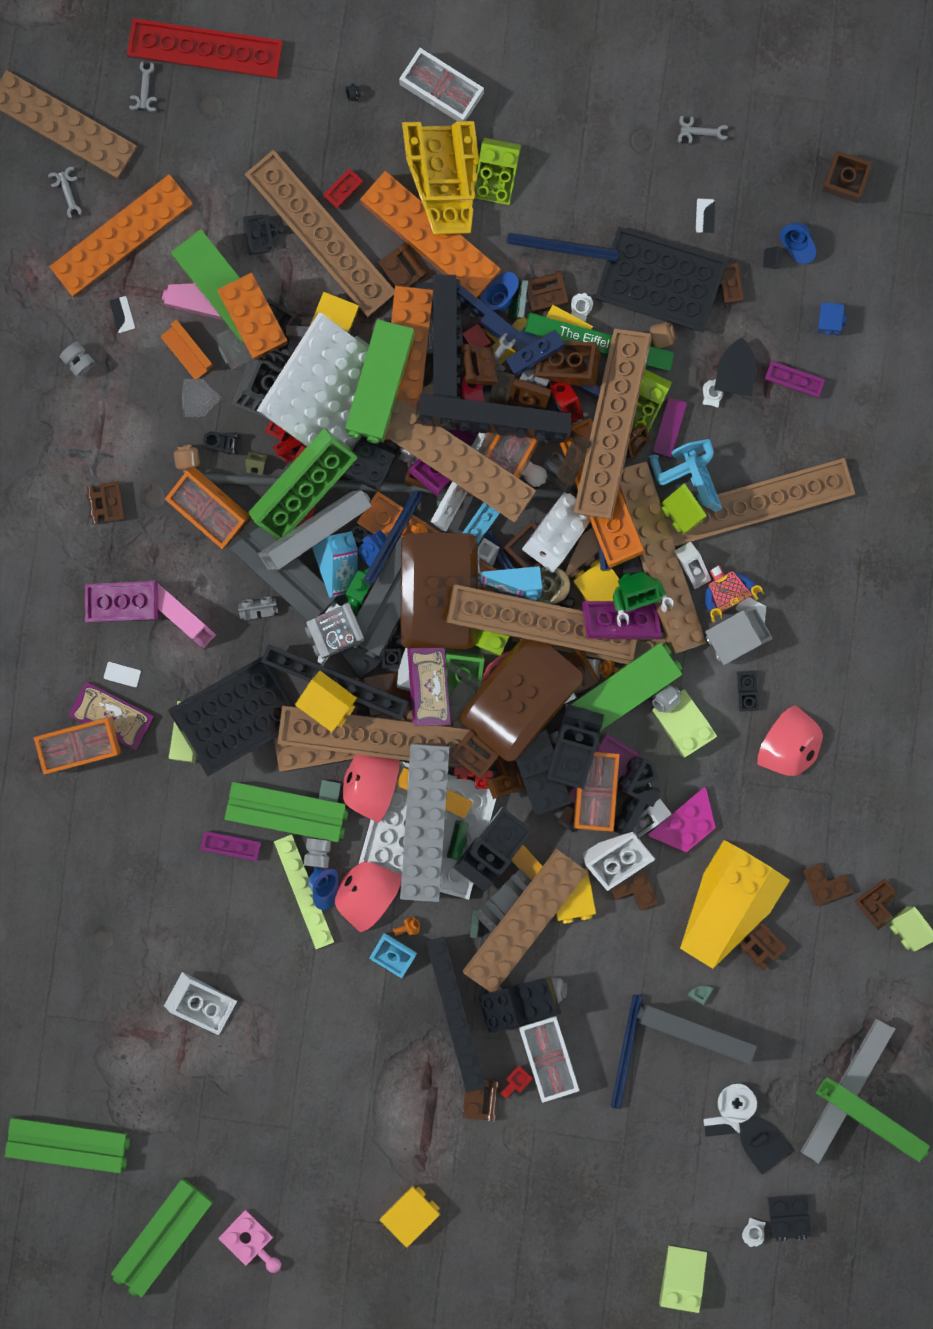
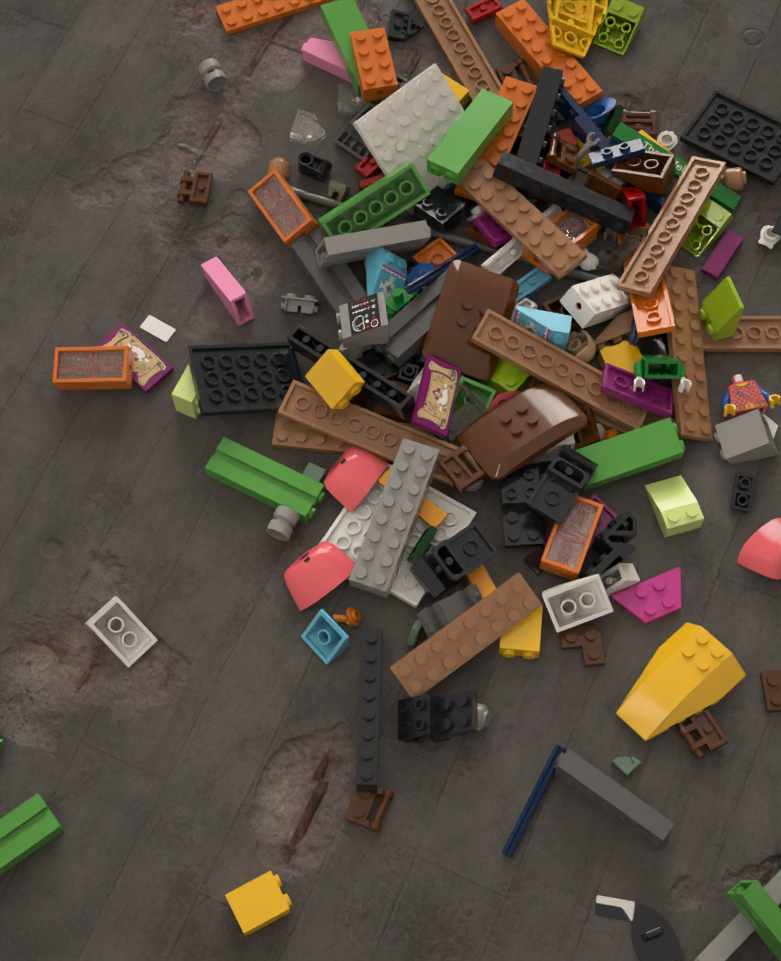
camera: 20 degrees right, 20 degrees down
(121, 601) = (179, 264): magenta tile -> none
(122, 314) = (263, 56): sticker -> none
(186, 350) = (309, 92): orange panel -> none
(230, 846) = (202, 496): magenta plate -> none
(247, 1251) = (95, 882): bright pink plate -> none
(299, 882) = (258, 558): yellowish green plate -> none
(324, 887) = (279, 555): blue piece -> none
(463, 774) = (447, 488): red hinge -> none
(508, 781) = (487, 506): reddish brown plate -> none
(517, 1080) = (412, 796): red plate -> none
(548, 1058) = (451, 781): clear brick -> none
(564, 247) = (662, 92): dark blue axle -> none
(637, 441) = (687, 255): reddish brown piece -> none
(667, 699) = (662, 475): light grey head -> none
(693, 565) = (716, 369): white slope -> none
(694, 465) = (742, 273): medium azure plate -> none
(745, 1096) = (626, 892): white plate -> none

